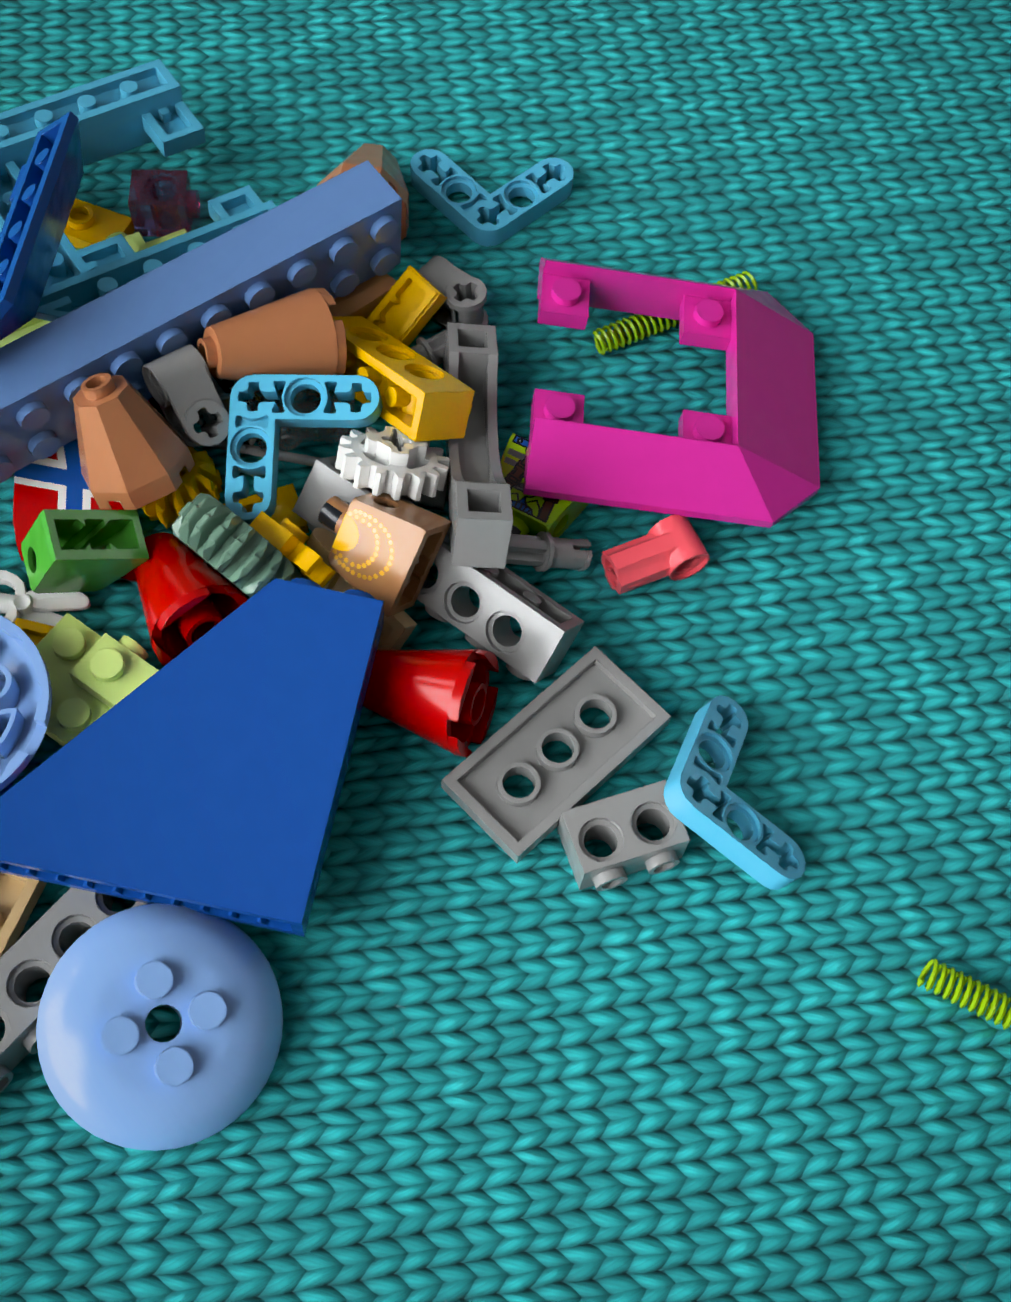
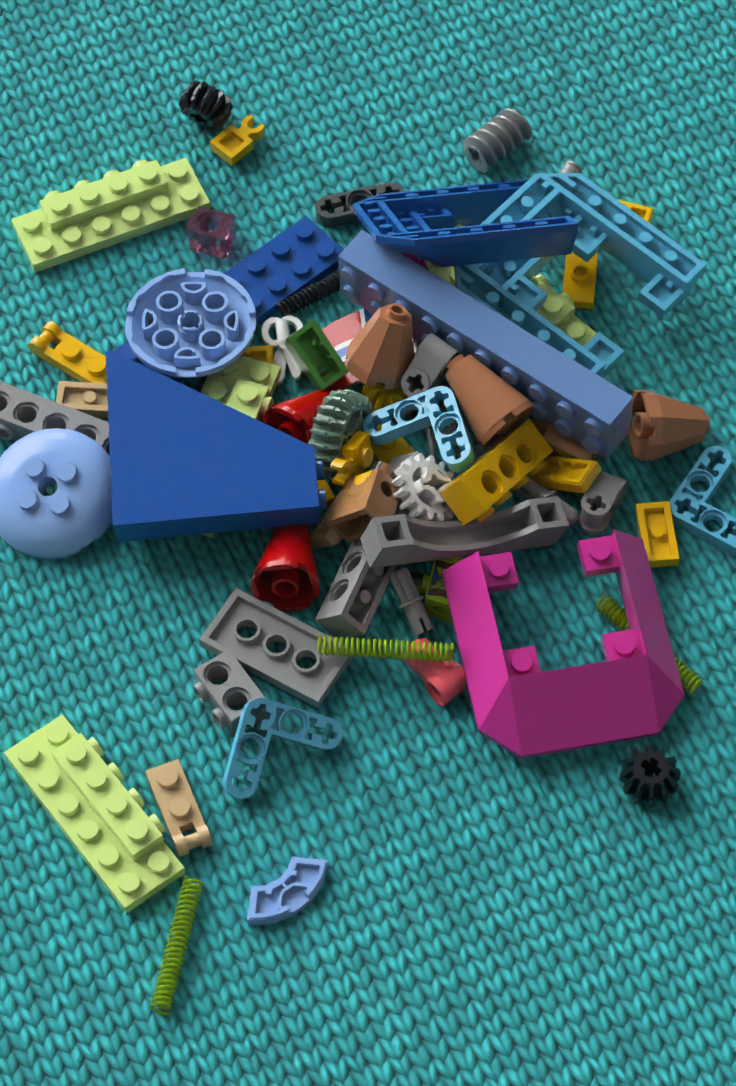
camera: 80 degrees right, 5 degrees down
(162, 202) = (611, 303): brick -> none
(513, 253) = (658, 533): none -> yellow plate
(587, 676) = (426, 656): none -> lime piece
(770, 1100) = (96, 812): none -> yellowish green plate
(794, 965) = (178, 807): none -> tan plate
(870, 362) = (663, 774): none -> black gear
(965, 849) = (288, 893): none -> light blue tile

